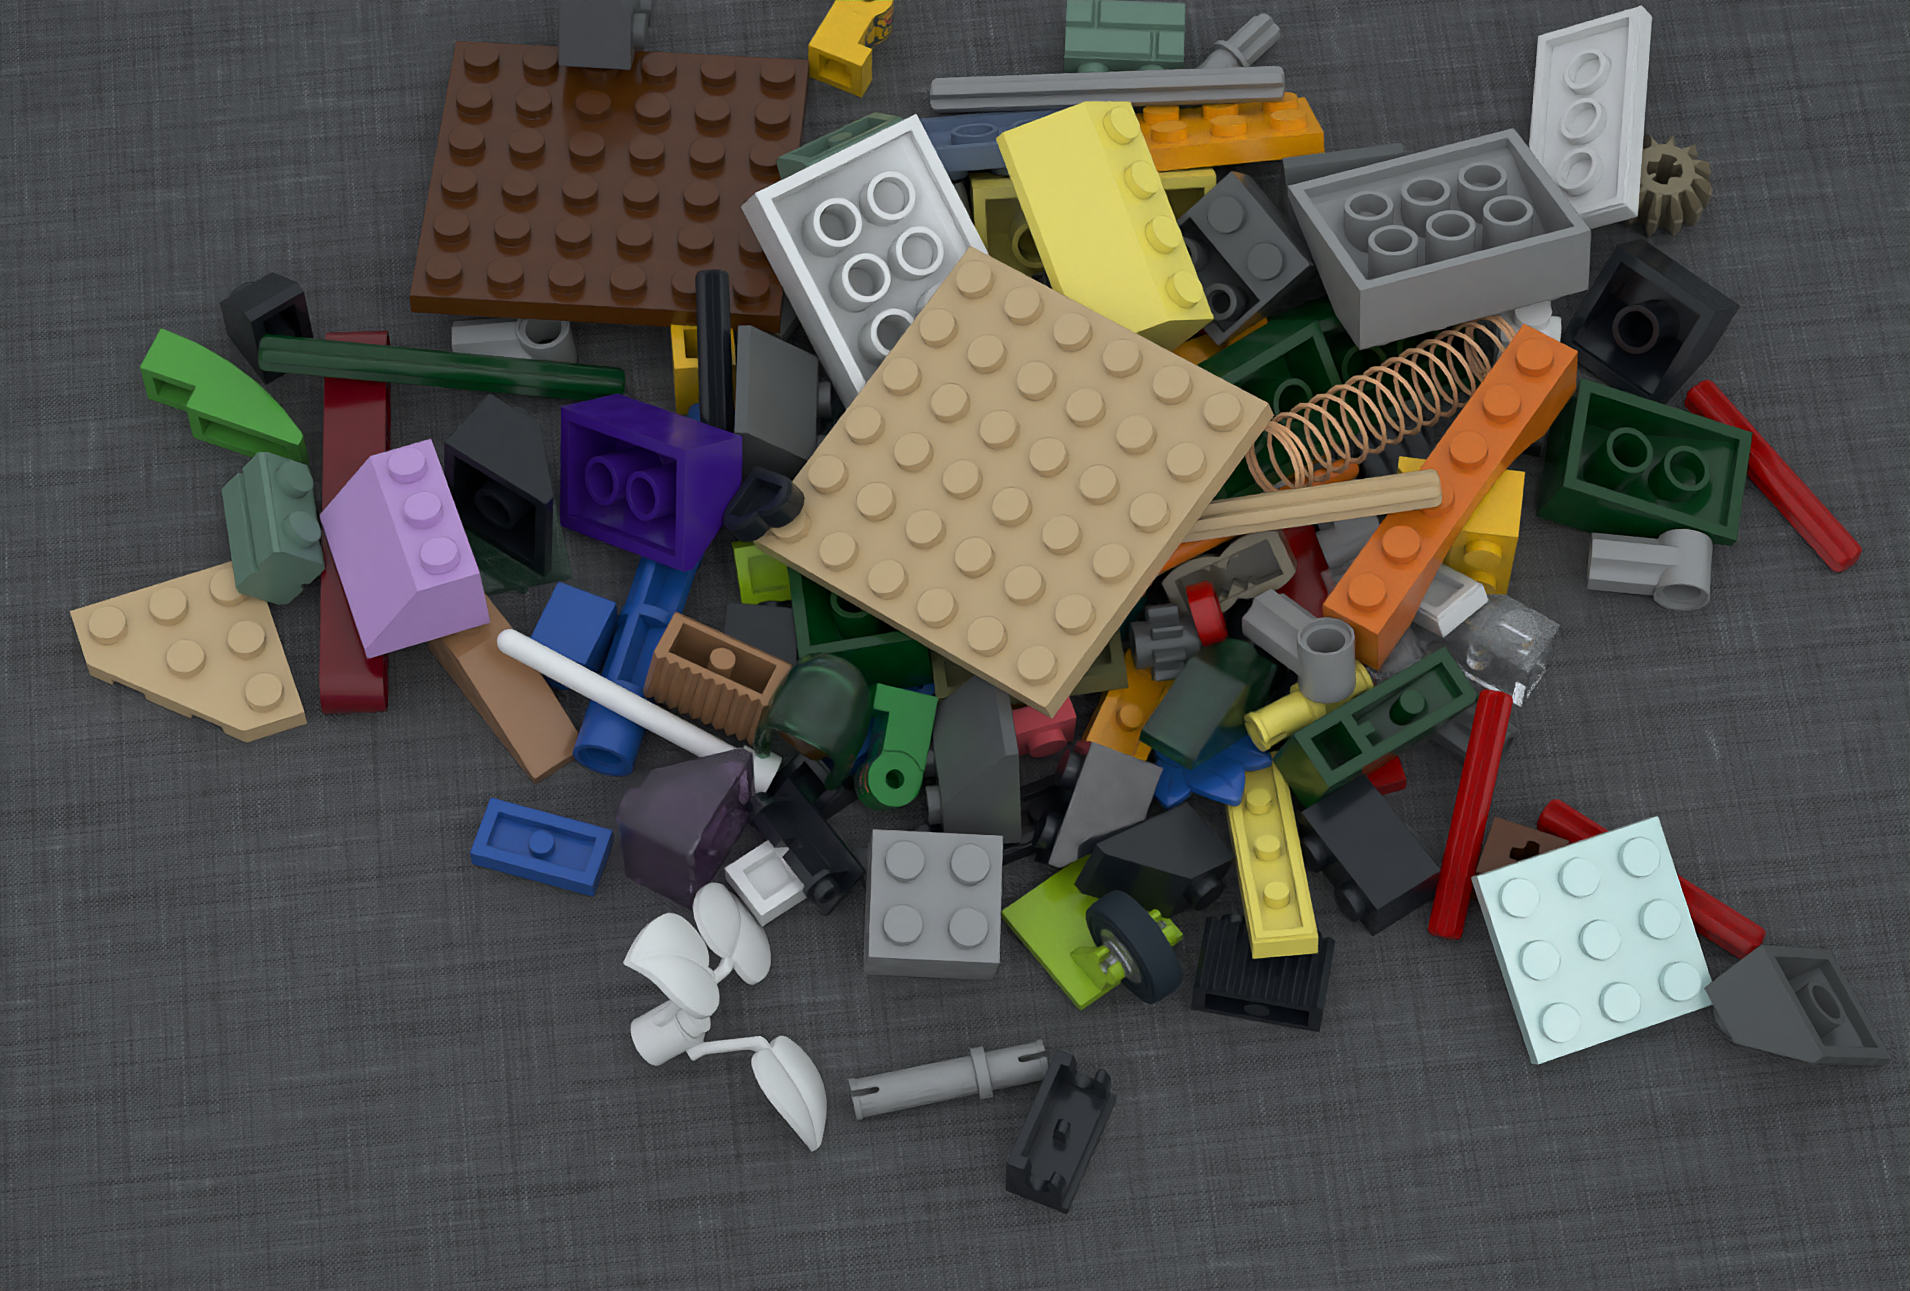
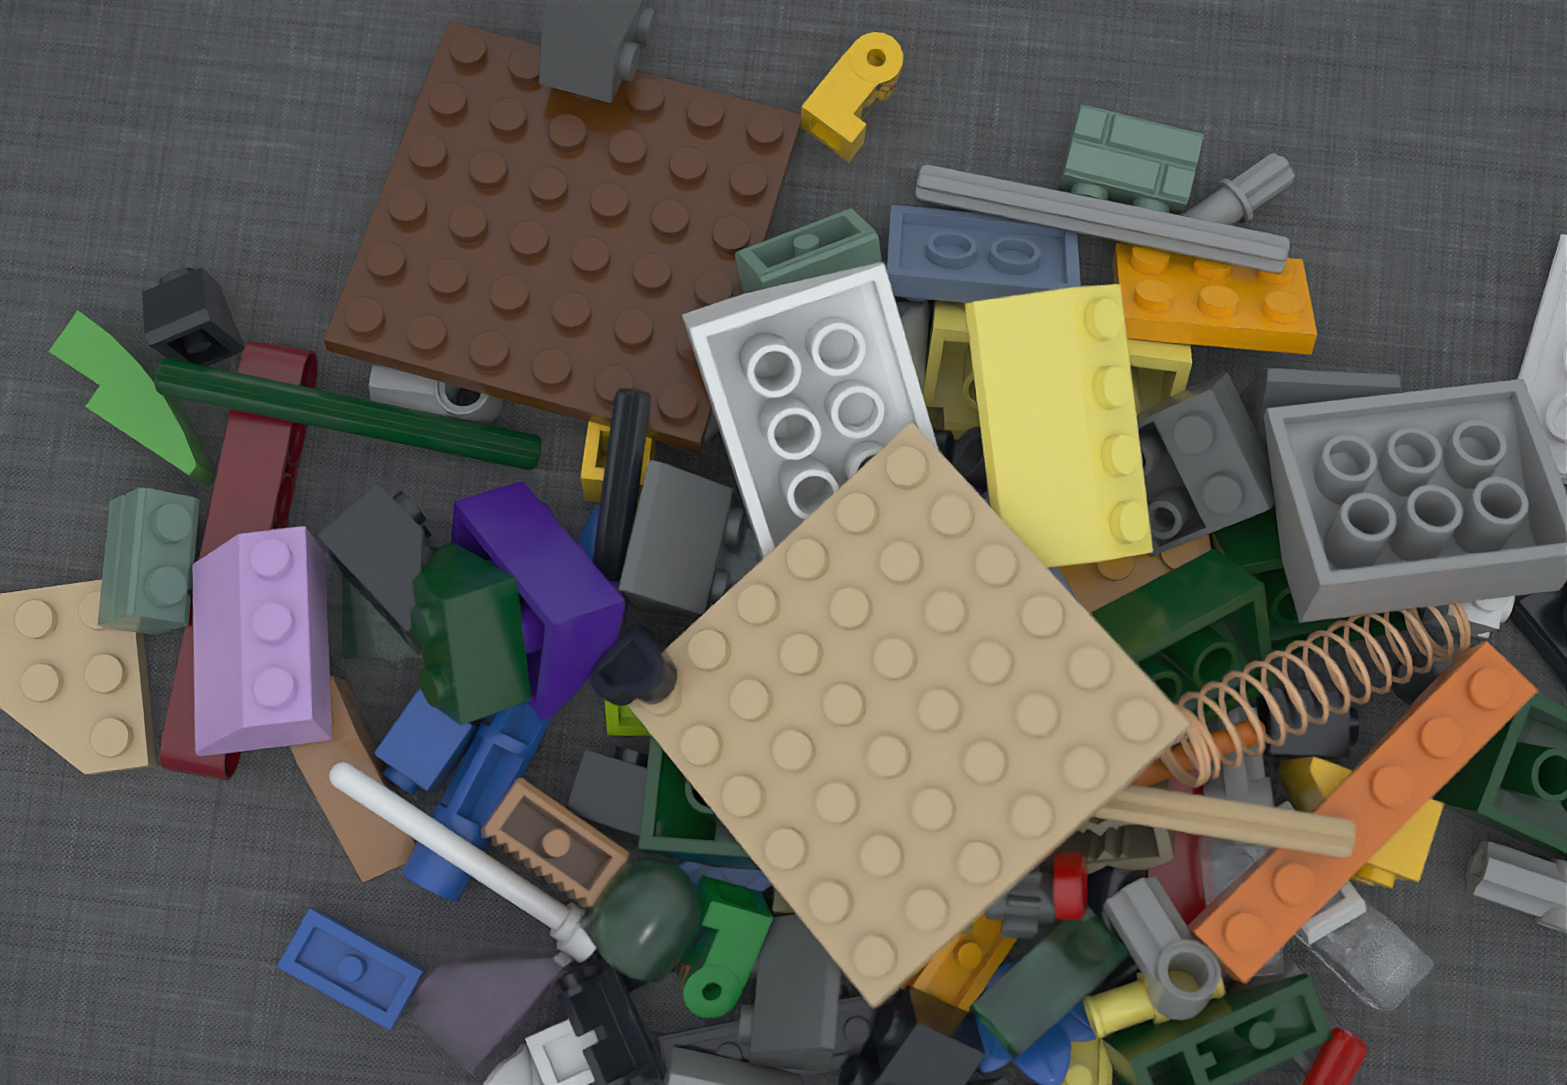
camera: 15 degrees right, 20 degrees up
(606, 507) = (469, 635): none -> dark green slope

